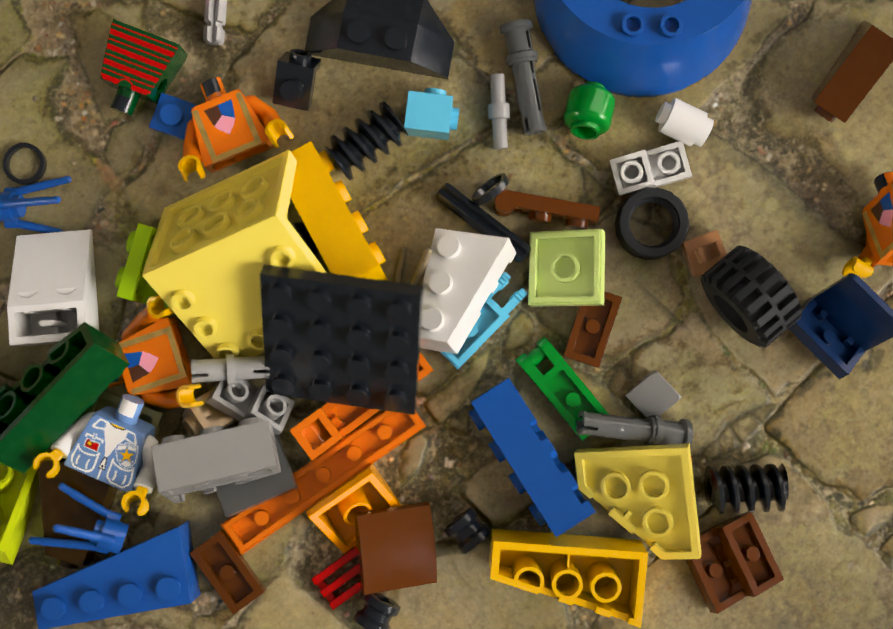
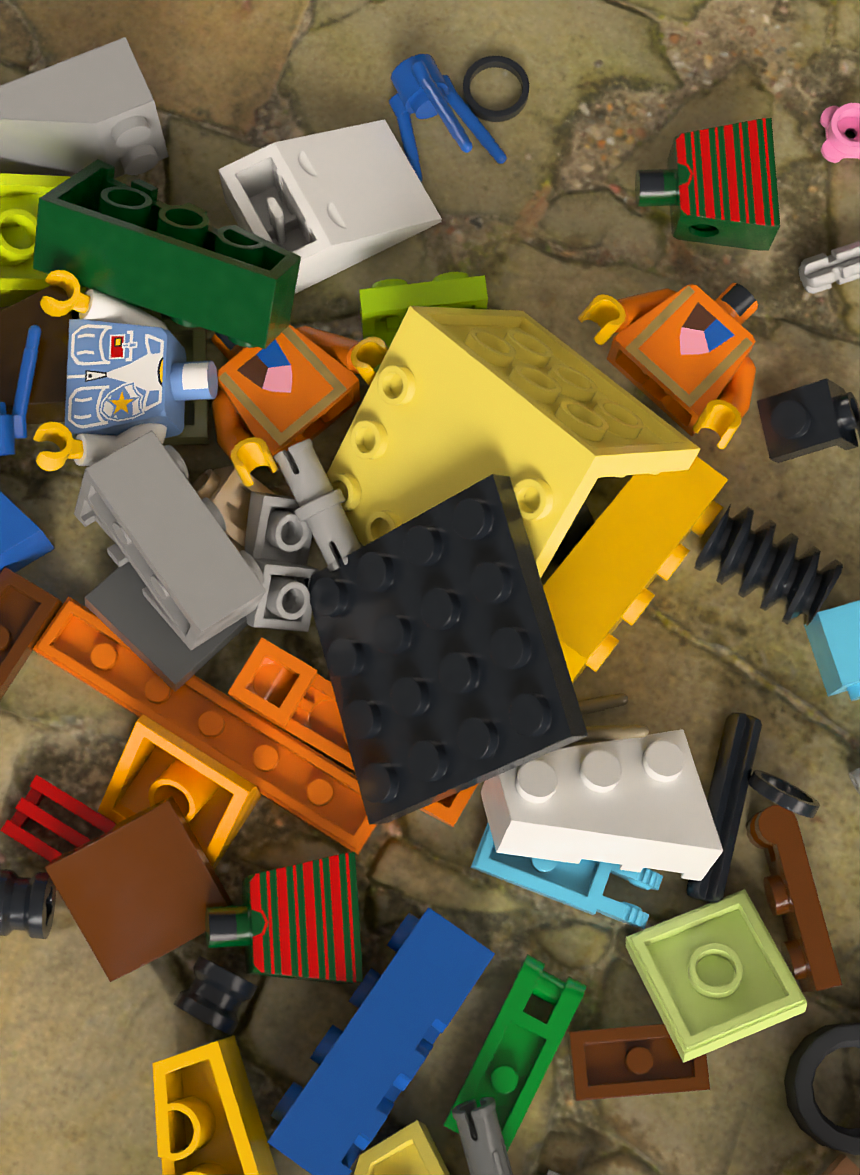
camera: 65 degrees right, 10 degrees down
(171, 116) = (664, 262): blue plate -> none
(448, 473) = (296, 922): none -> torso

